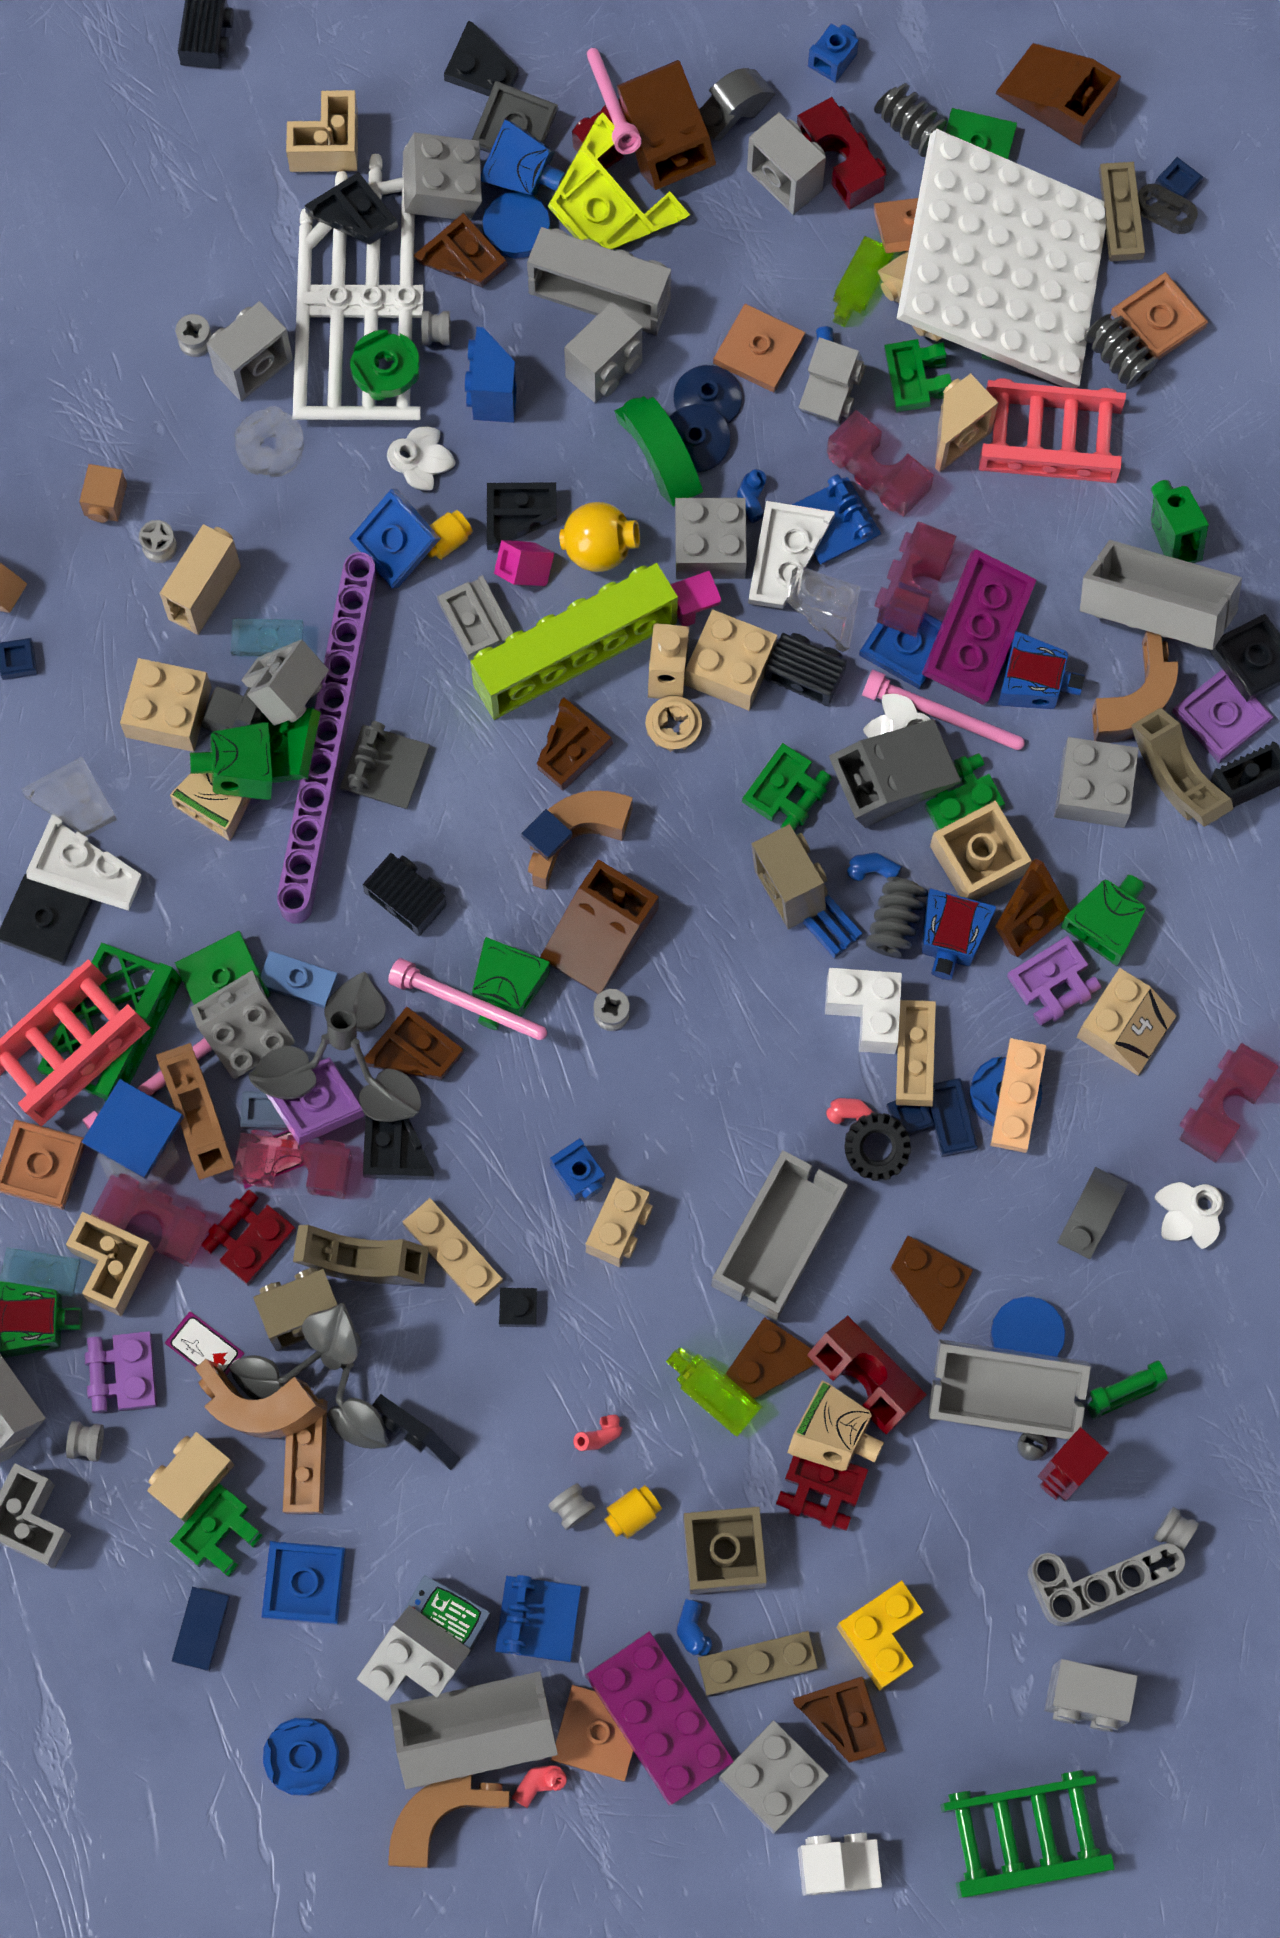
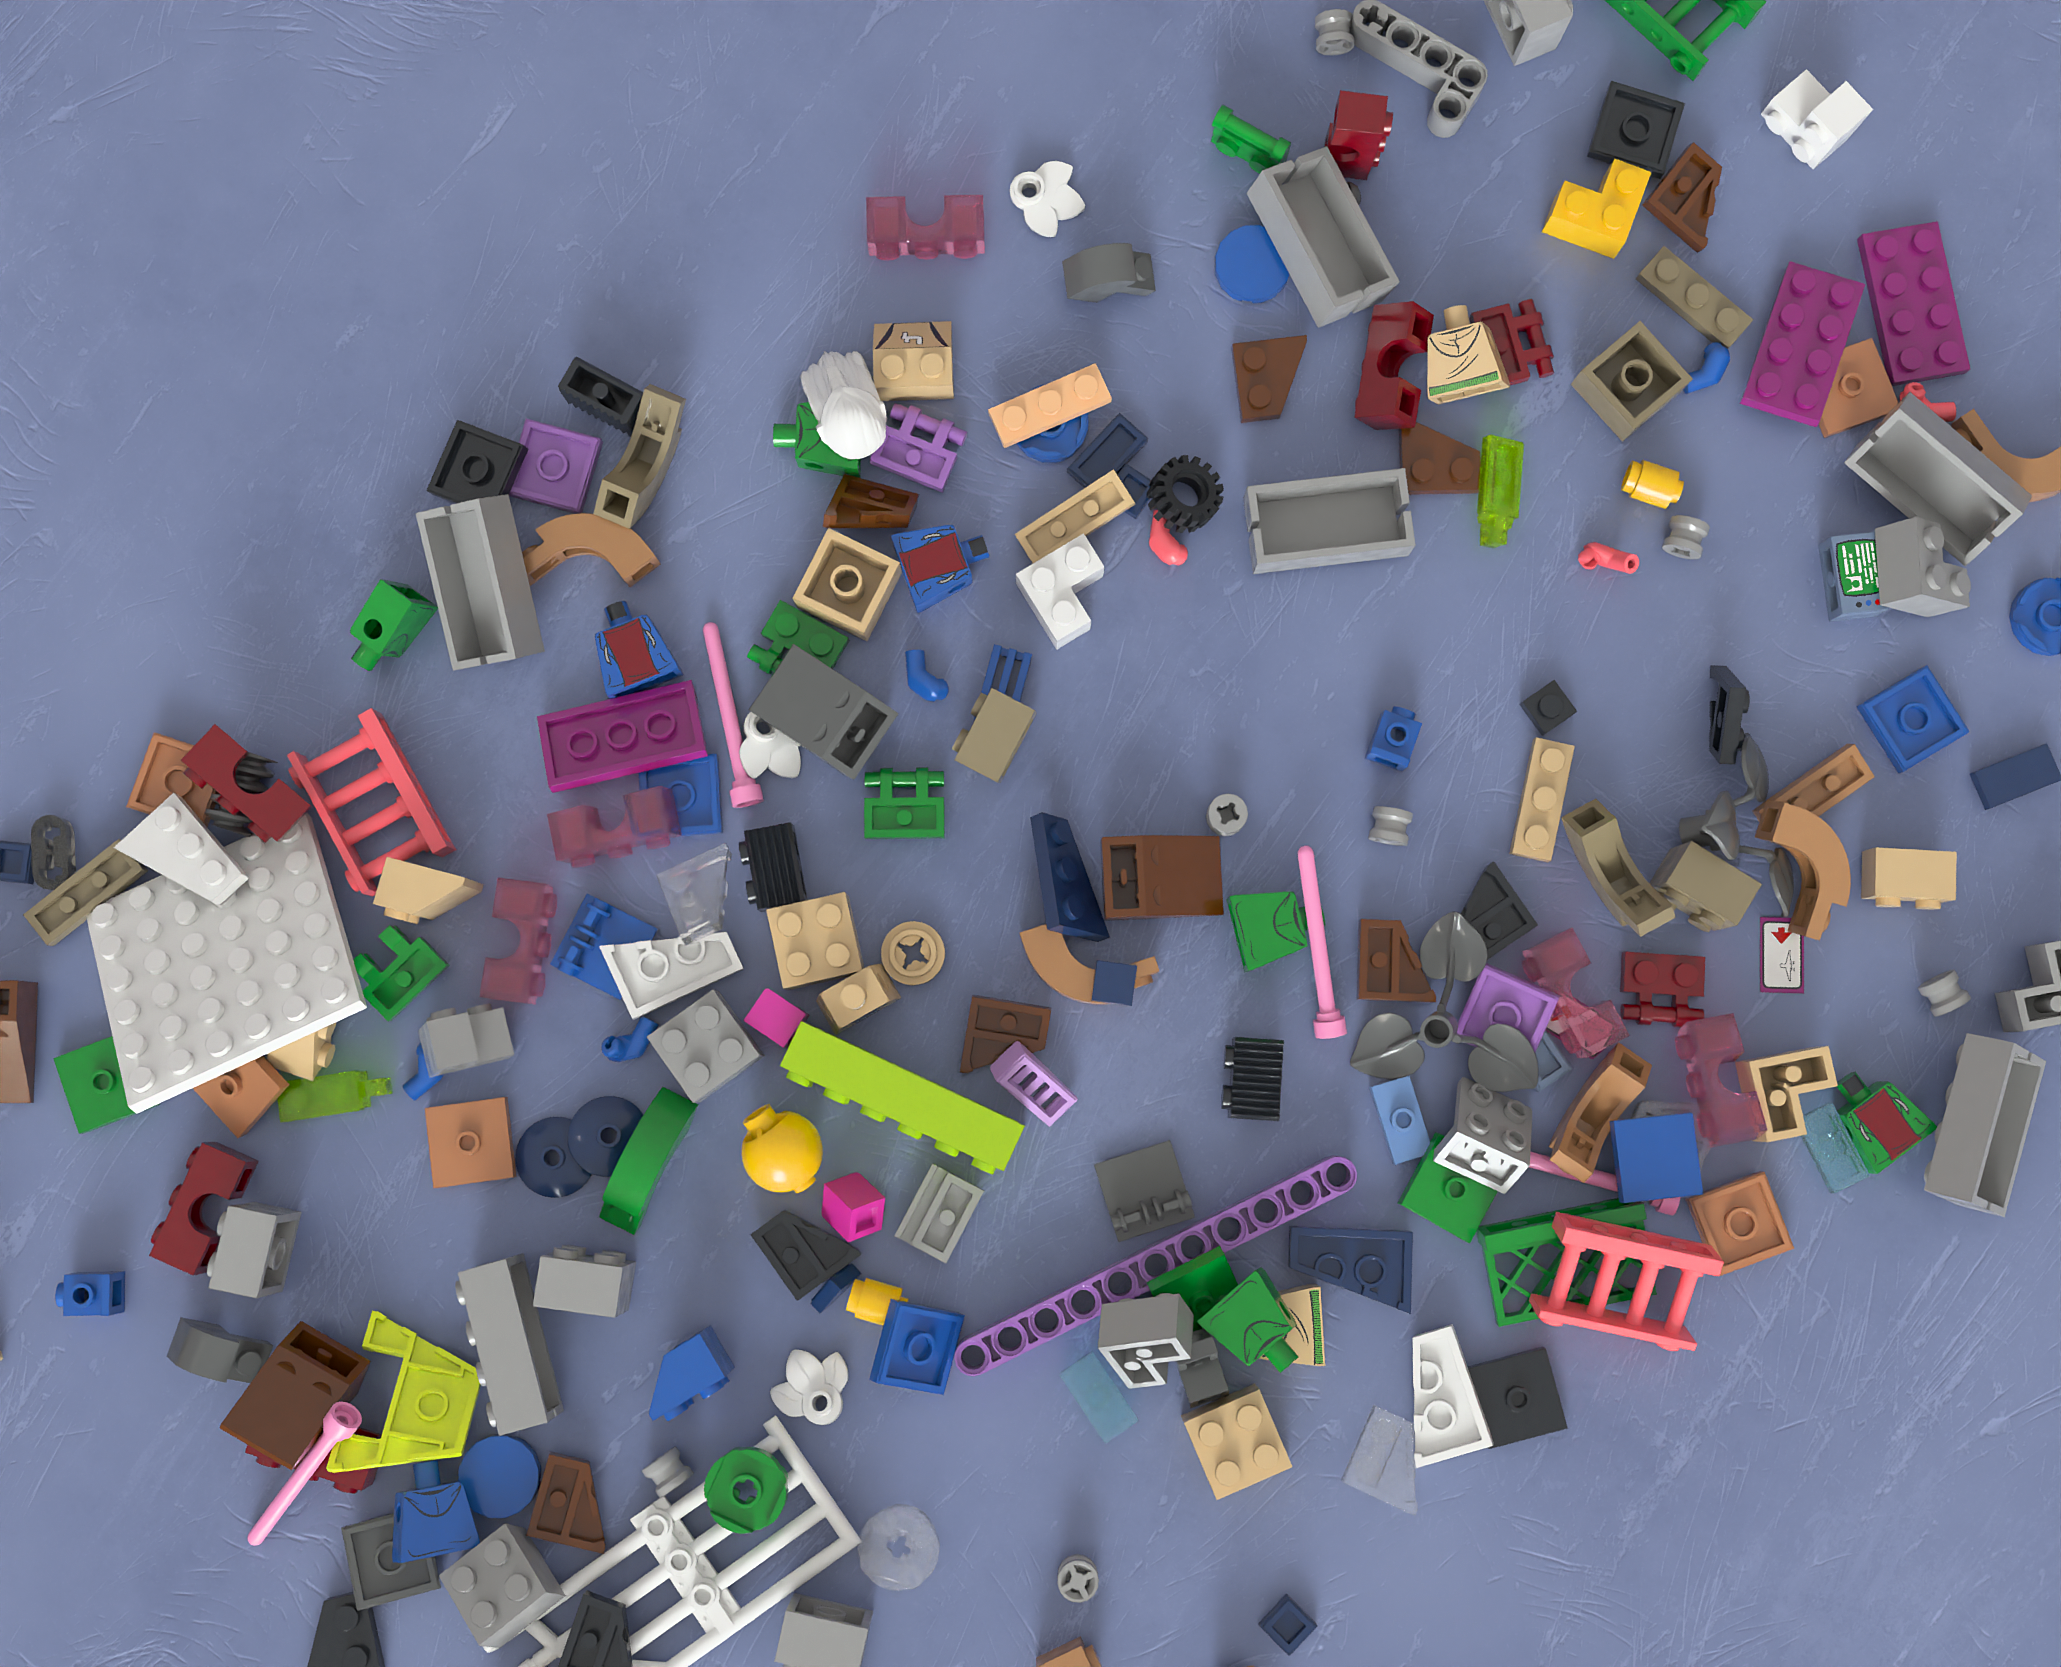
camera: 125 degrees left, 10 degrees up
(133, 1372) = (1850, 1000): medium lavender plate -> none
(200, 578) = (1091, 1502): tan brick -> none
(210, 1526) = (1931, 830): green plate -> none
(222, 879) = (1358, 1260): none -> dark blue wing
(477, 516) = (835, 1287): none -> dark blue tile
(515, 1121) = (1390, 826): none -> light grey wheel
(538, 1618) = (1796, 502): blue hinge -> none
(539, 734) = (1015, 1066): none -> lavender slope
(617, 1223) = (1417, 669): tan brick -> none
(628, 1841) = (1913, 303): none -> magenta plate
(648, 857) = (1064, 883): none -> dark blue wing
(773, 1777) = (1780, 217): light grey brick -> none
(894, 916) = (959, 620): dark grey piece -> none
(908, 118) = (118, 1162): dark grey piece -> none
(929, 1718) = (1636, 128): none -> black plate
(1096, 782) = (703, 530): light grey brick -> none
(1101, 284) = (184, 850): none -> white wing
(1124, 939) = (845, 404): none -> white hair
(1145, 333) = (215, 762): none -> dark red arch

